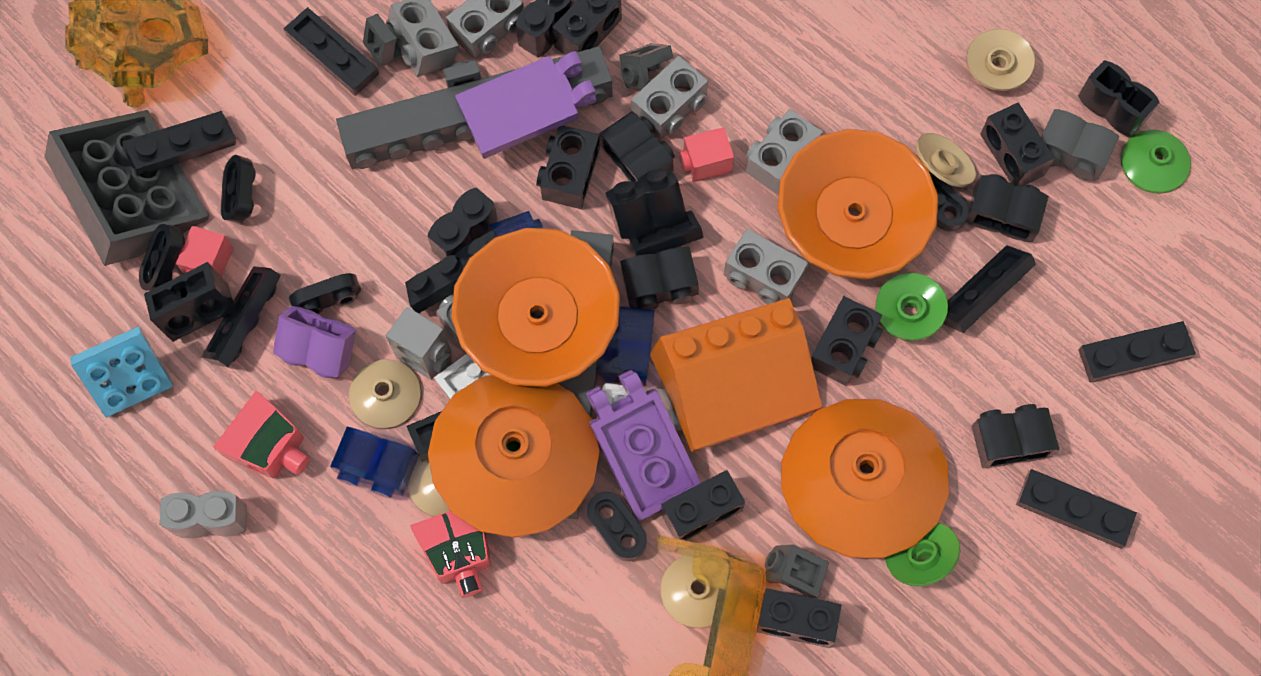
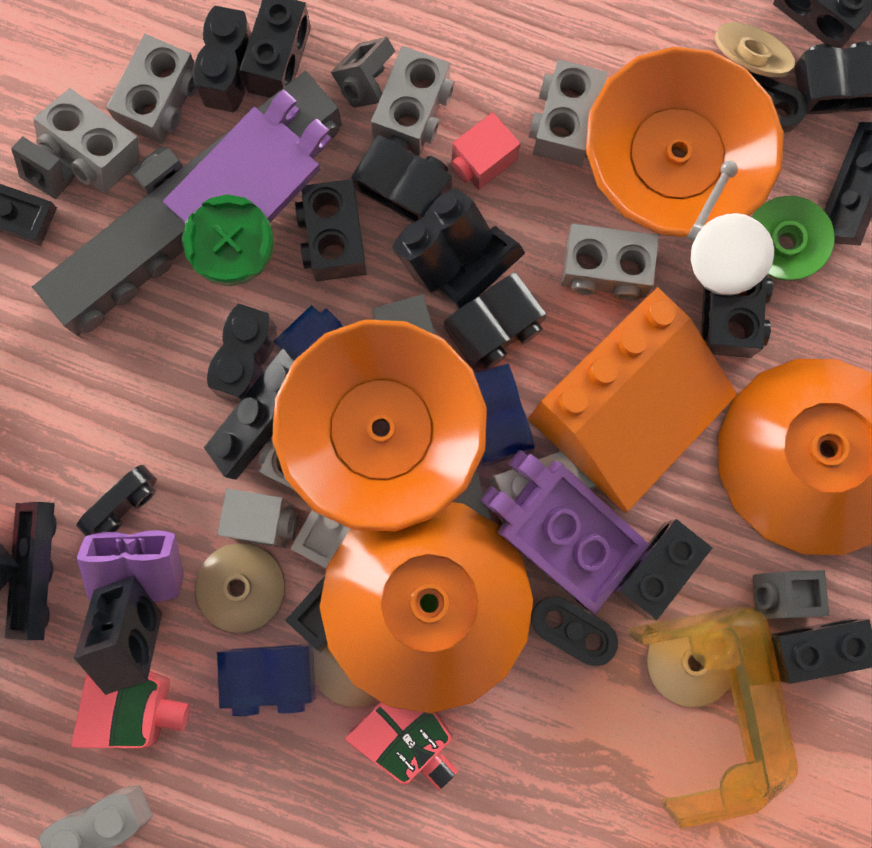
camera: 25 degrees left, 10 degrees up
(284, 380) = (119, 636): none -> black brick
(488, 140) = (228, 240): none -> green tile
(852, 294) = (732, 254): none -> white piece
(880, 234) = (728, 170): none -> light grey hinge

